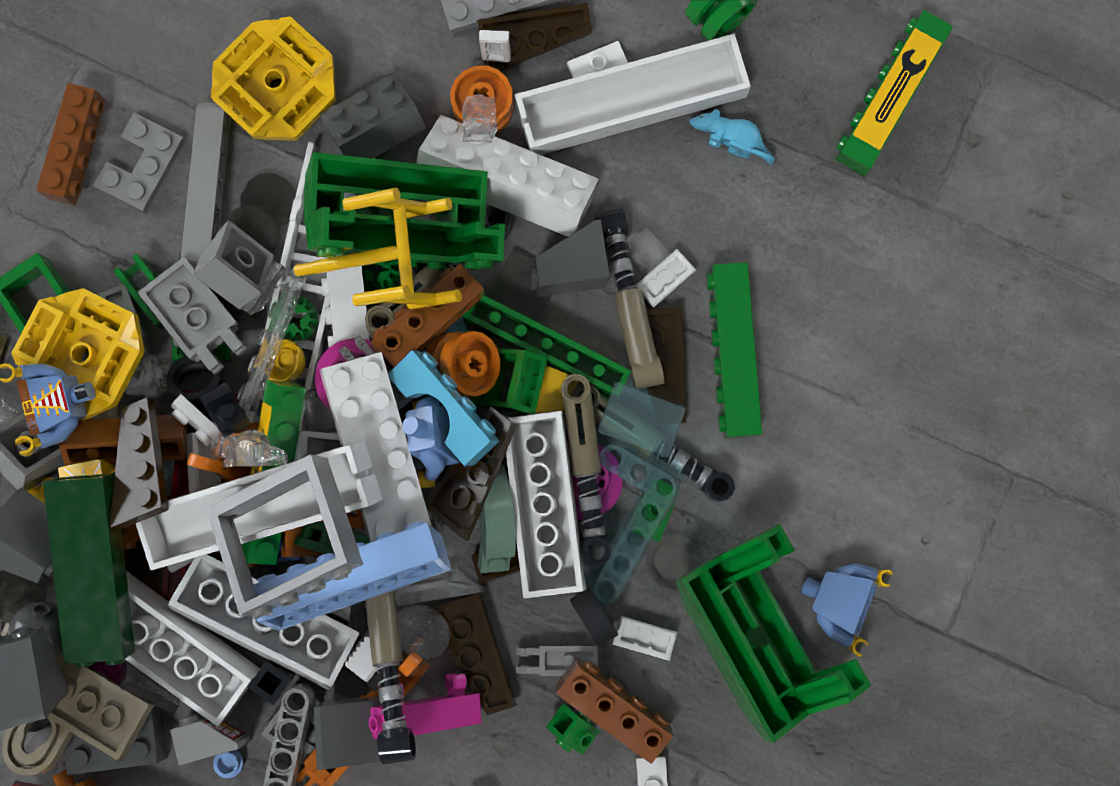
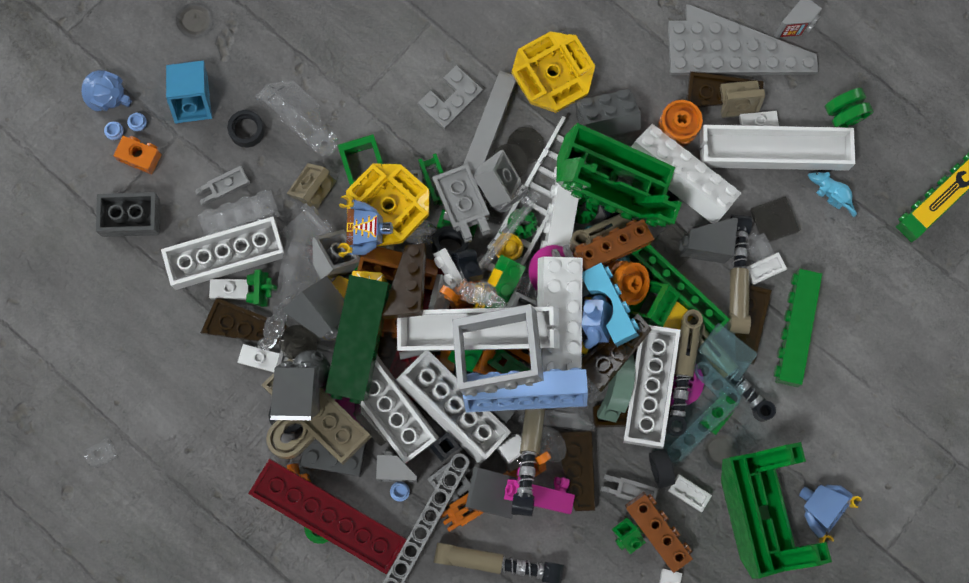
camera: 10 degrees right, 5 degrees down
(71, 144) = (412, 73): dark orange brick -> none
(401, 294) = (611, 224): yellow piece -> none
(479, 118) = (678, 133): clear brick -> none
(495, 45) = (700, 91): white plate -> none
(560, 38) = (741, 98): none -> dark tan bracket
(659, 201) = (775, 219): none -> clear smoke tile

